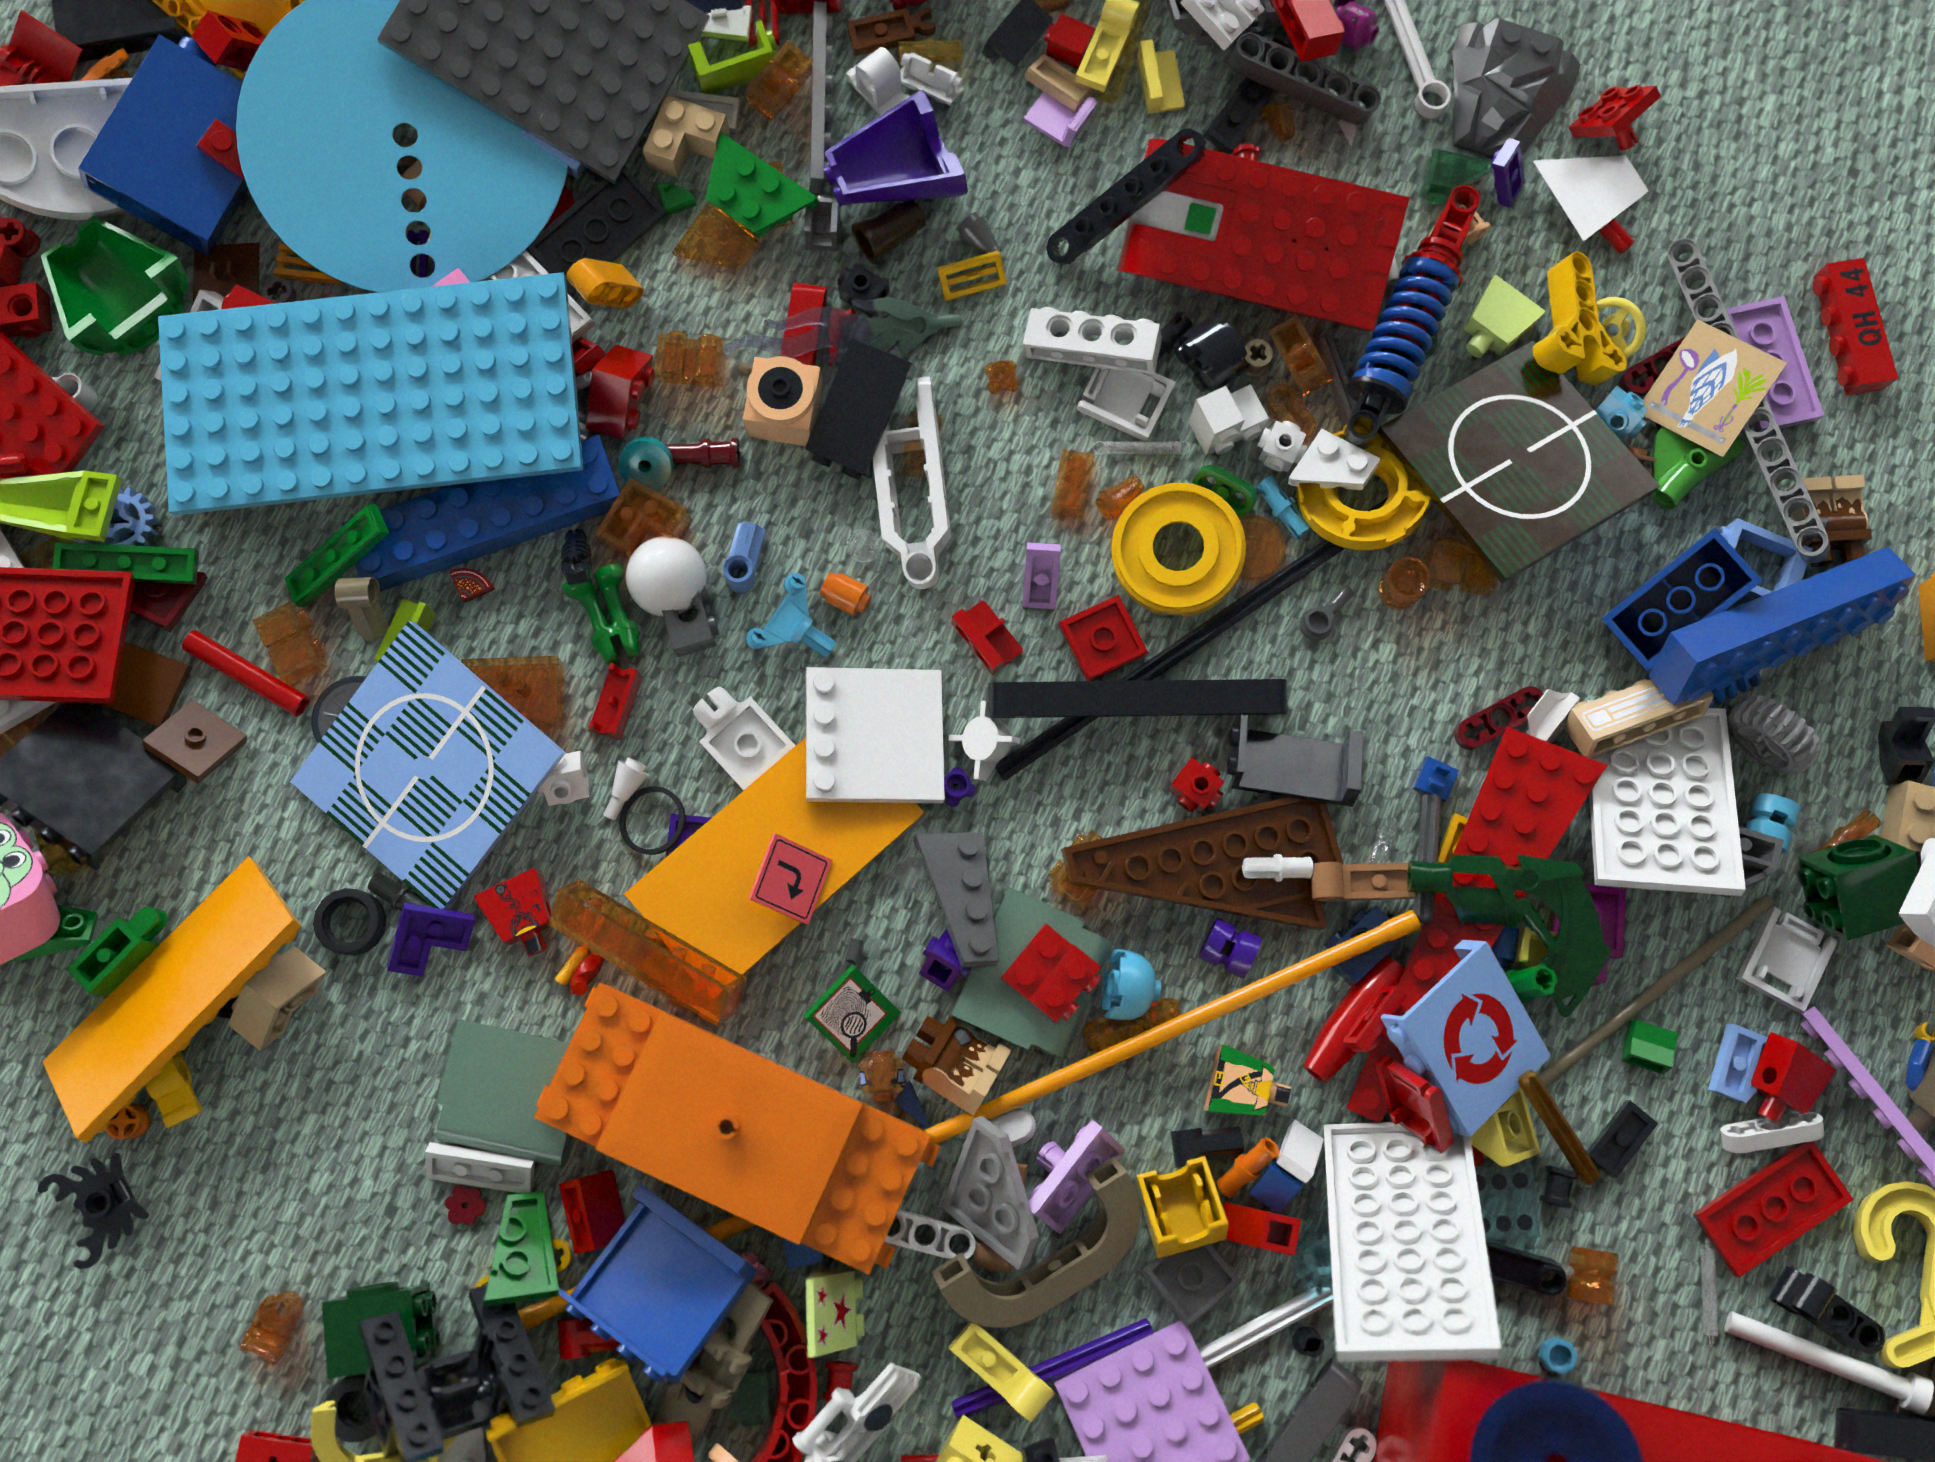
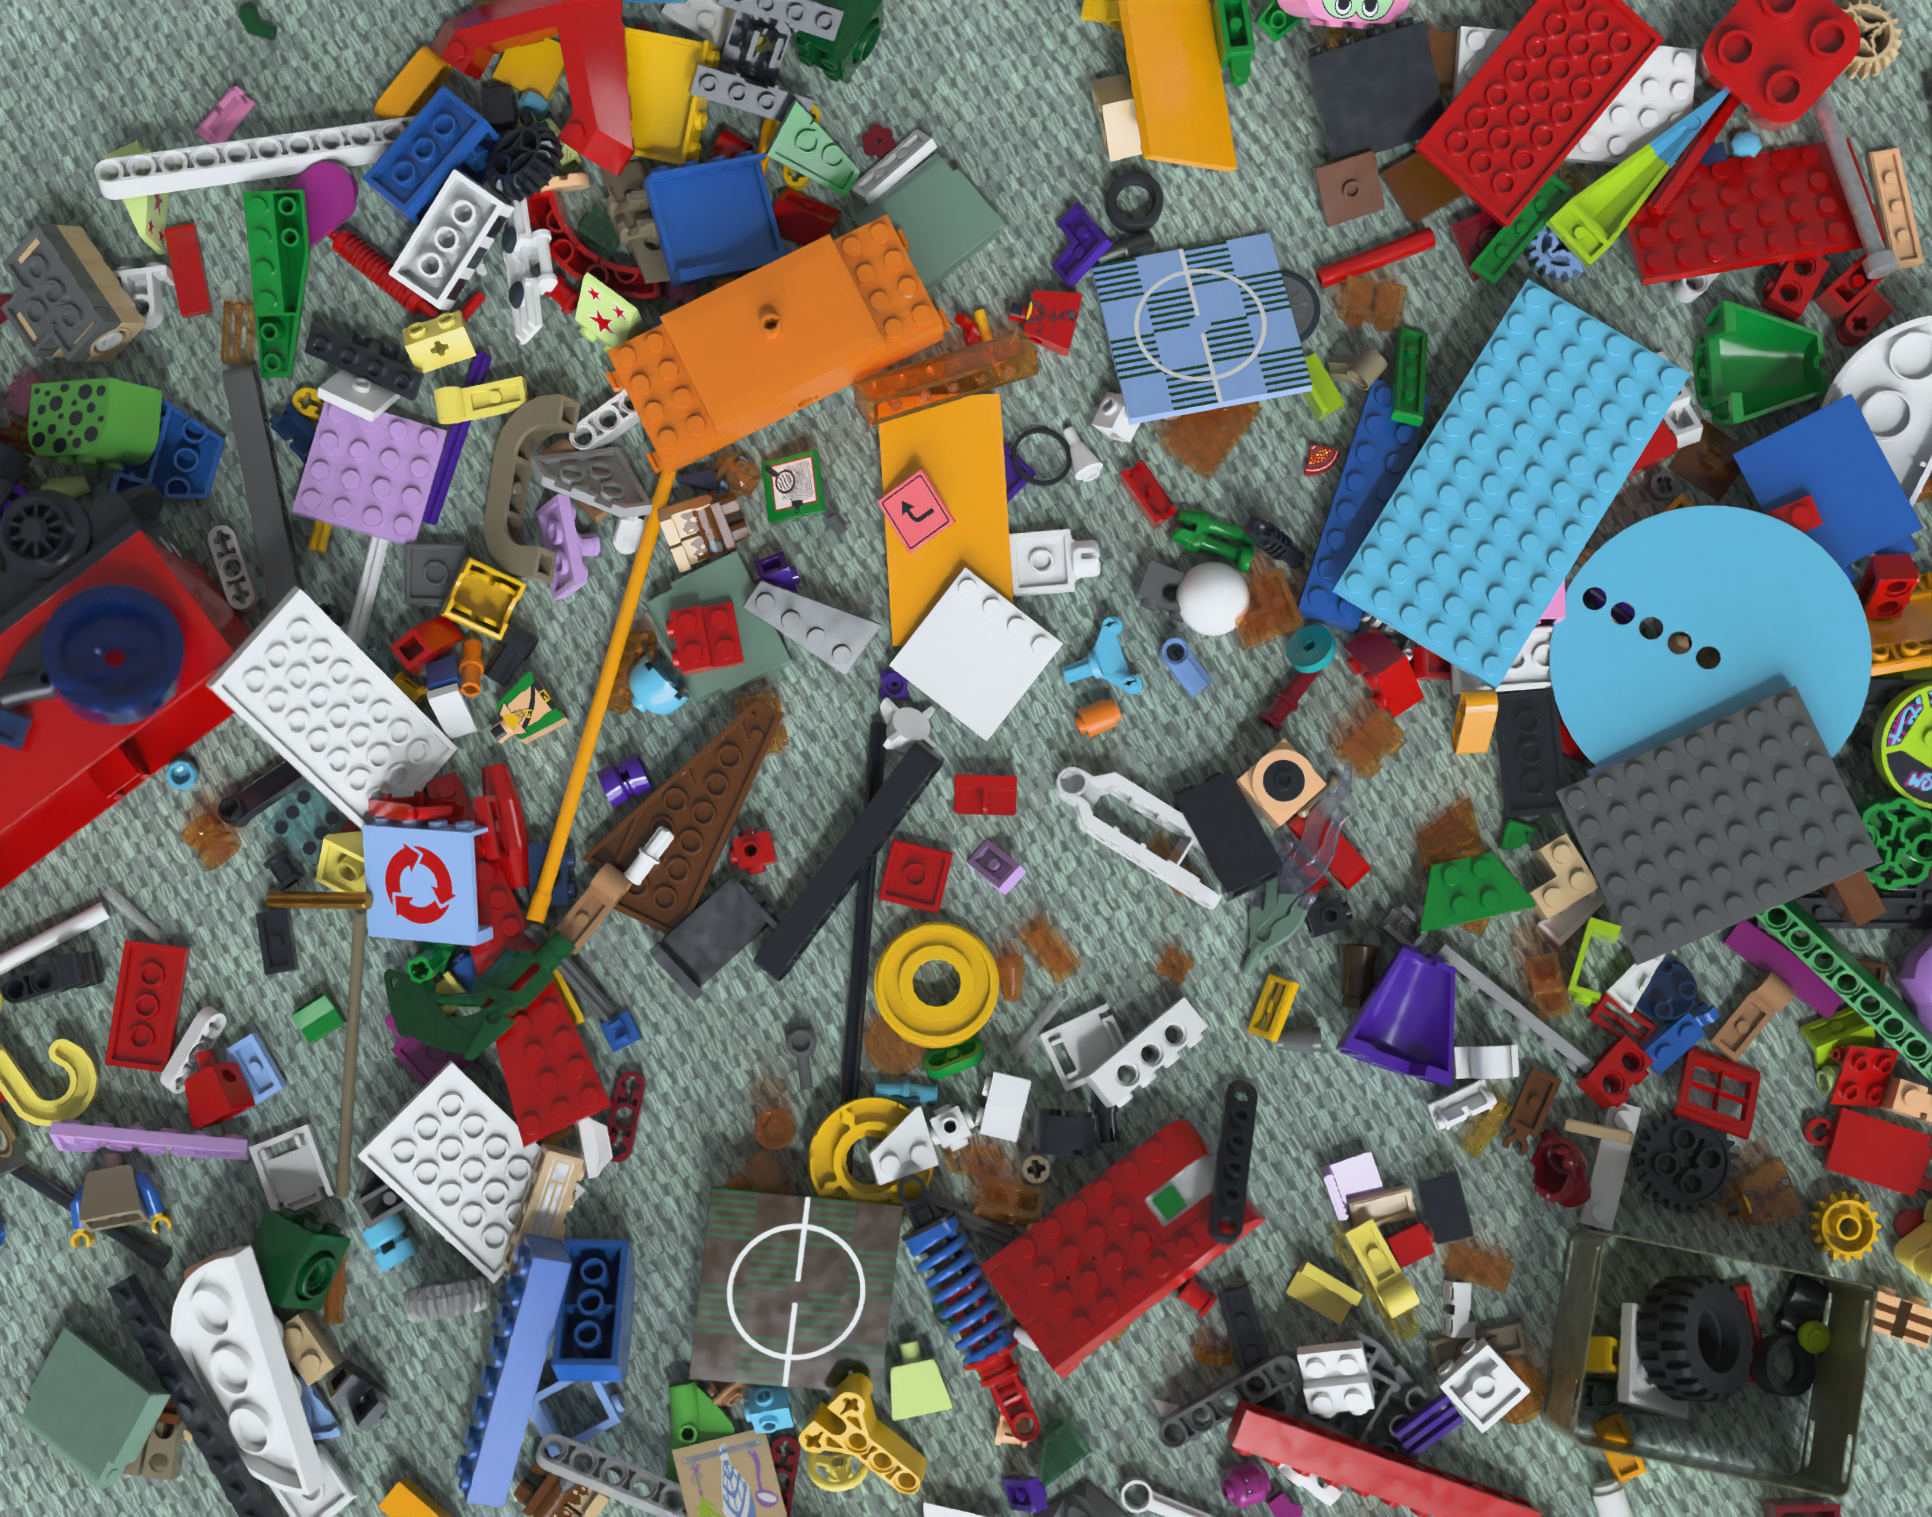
camera: 135 degrees right, 5 degrees up
(1313, 1212) = (409, 688): none -> yellow bush

